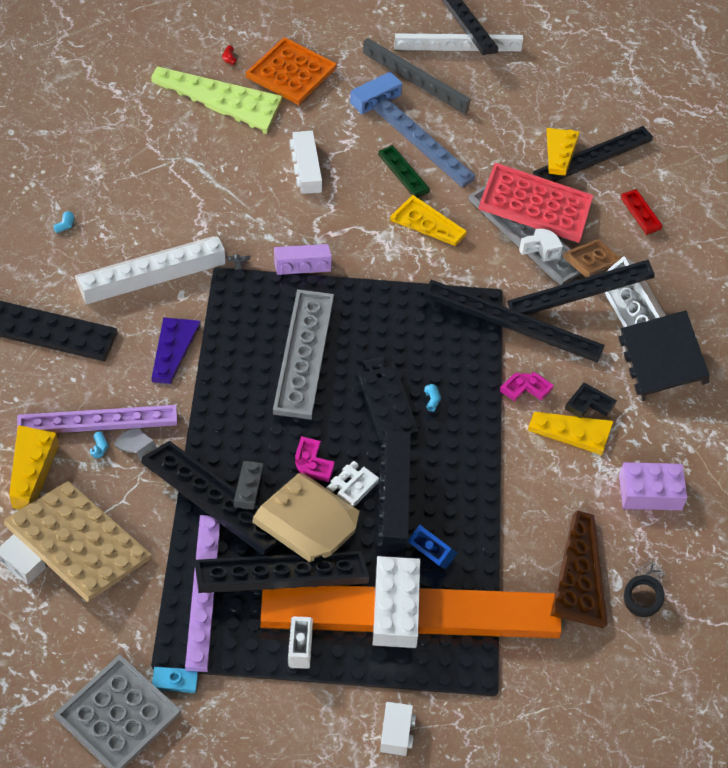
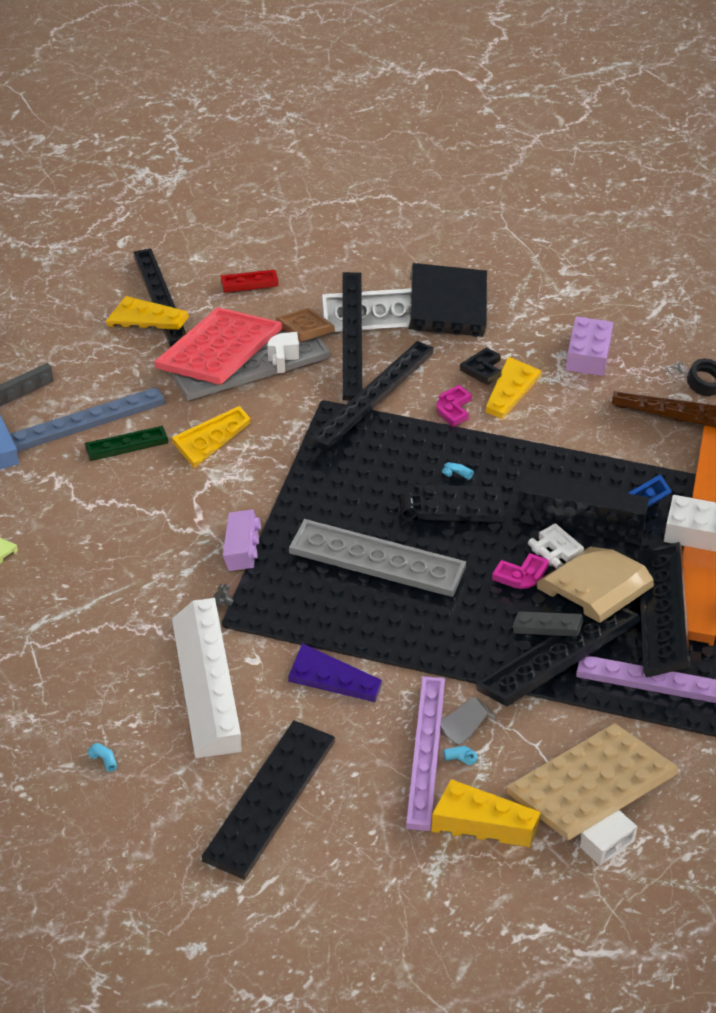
camera: 75 degrees left, 10 degrees down
(307, 162) = (86, 516): white brick -> none

